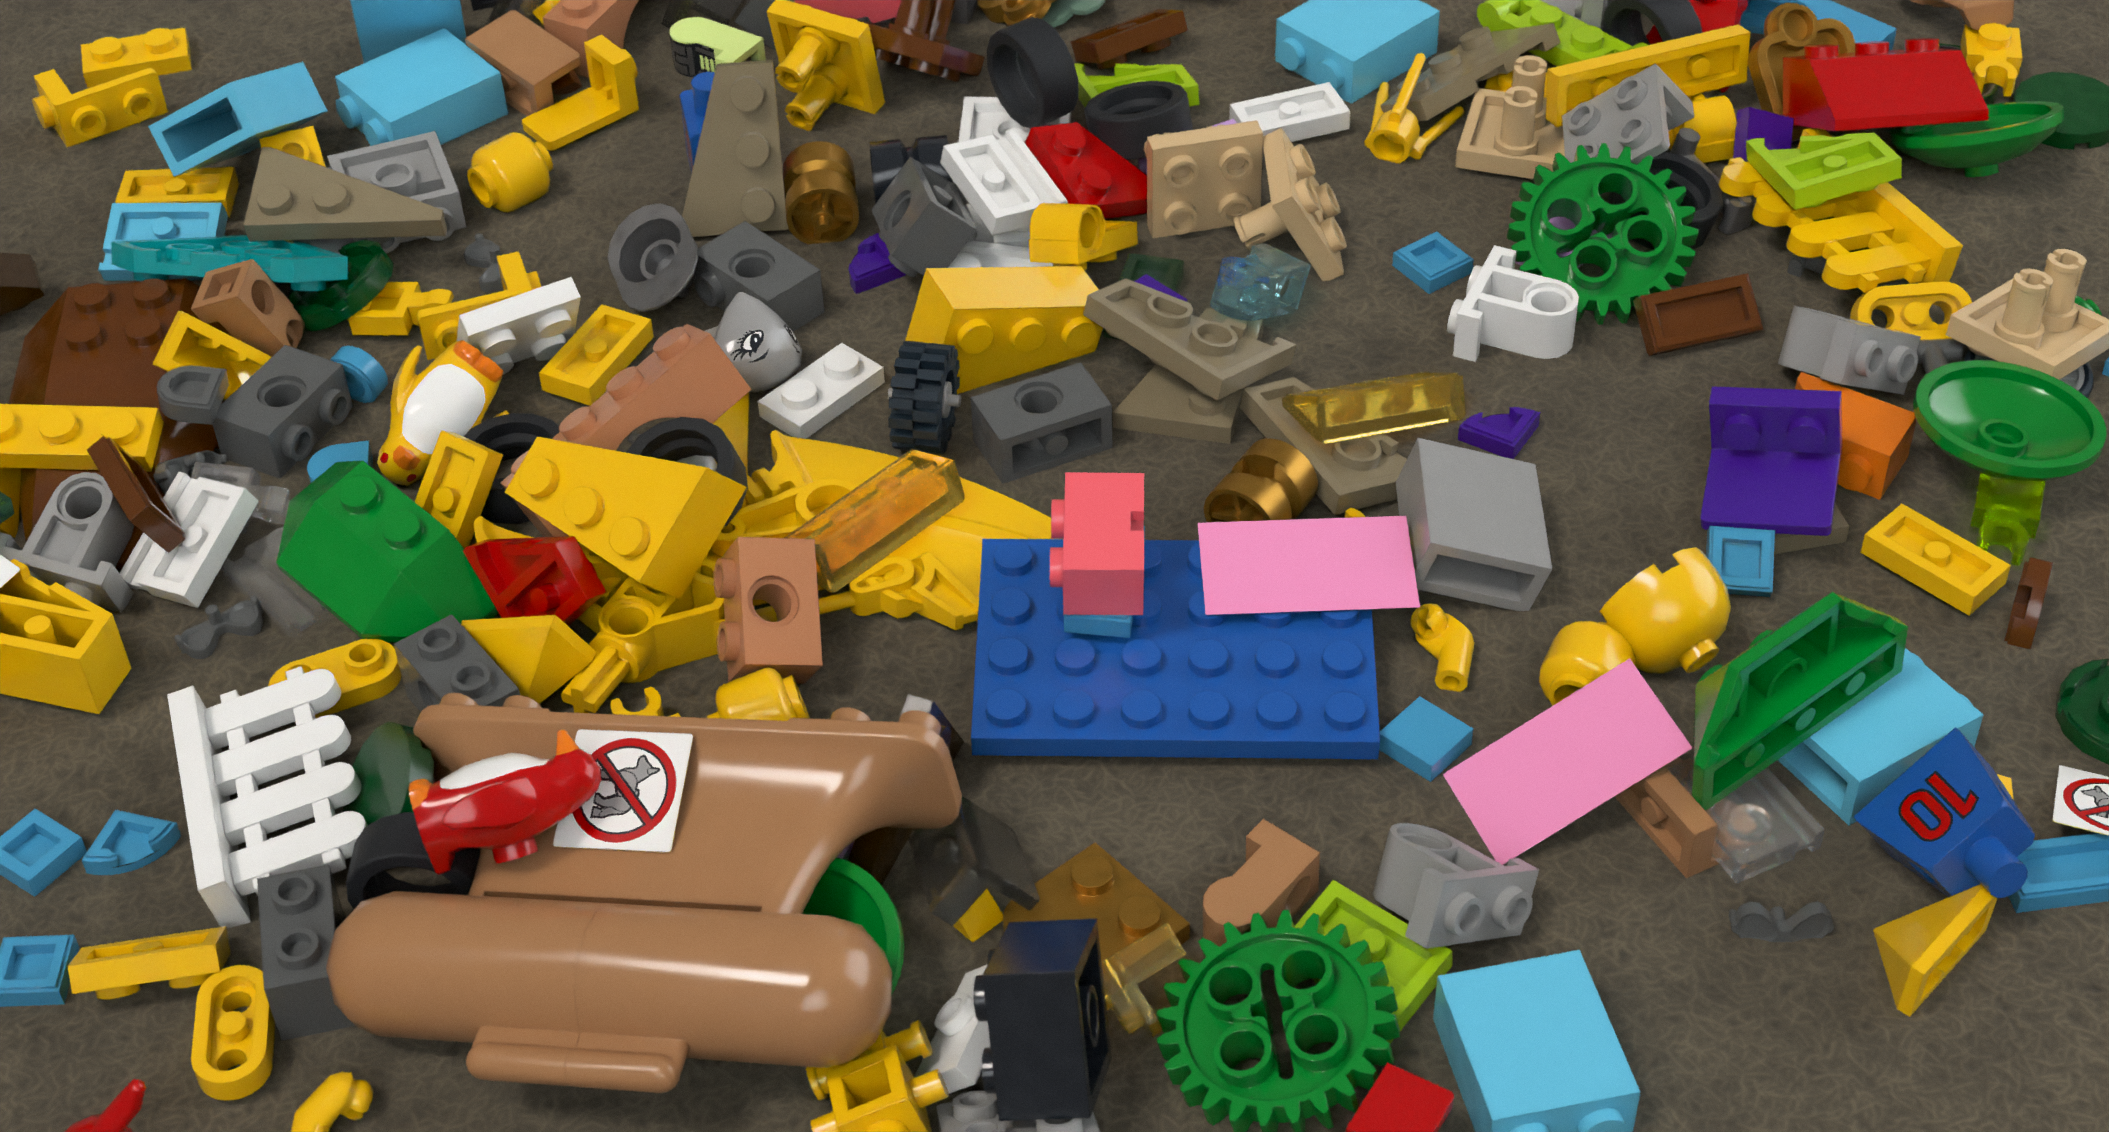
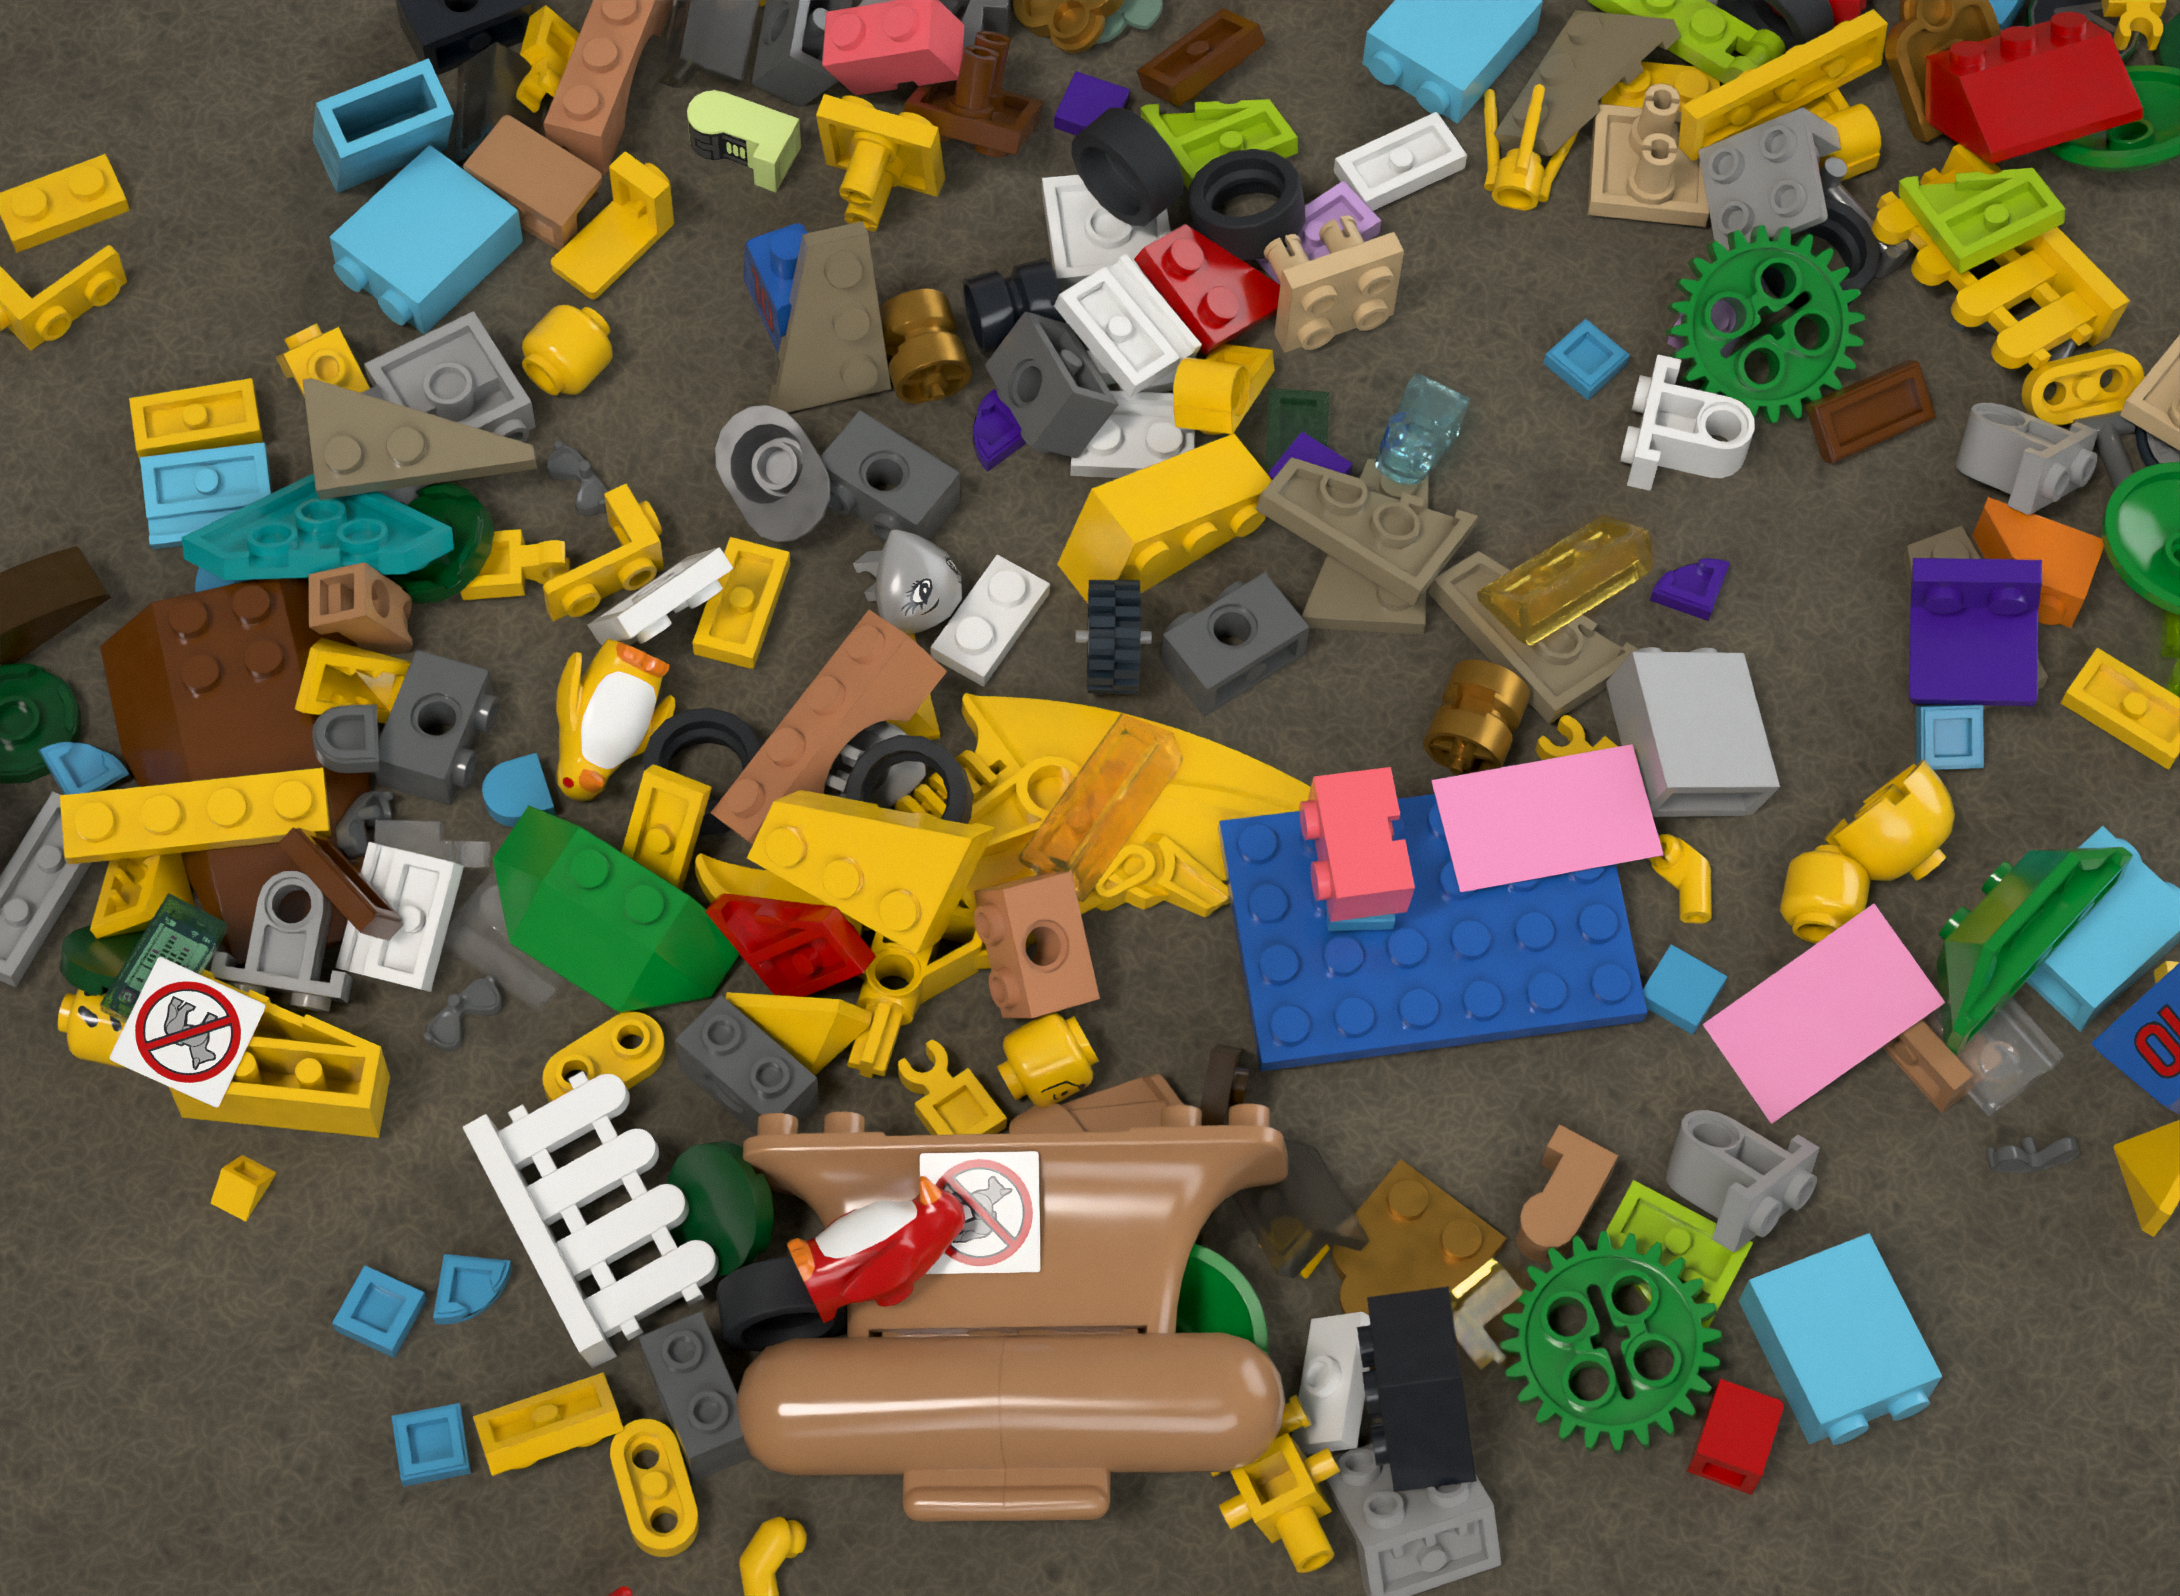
camera: 15 degrees left, 20 degrees up
(236, 118) = (253, 331): medium azure brick -> none
(362, 372) = (504, 665): dark azure tile -> none
(1297, 207) = (1443, 320): tan plate -> none
(1761, 124) = (1907, 151): dark purple tile -> none

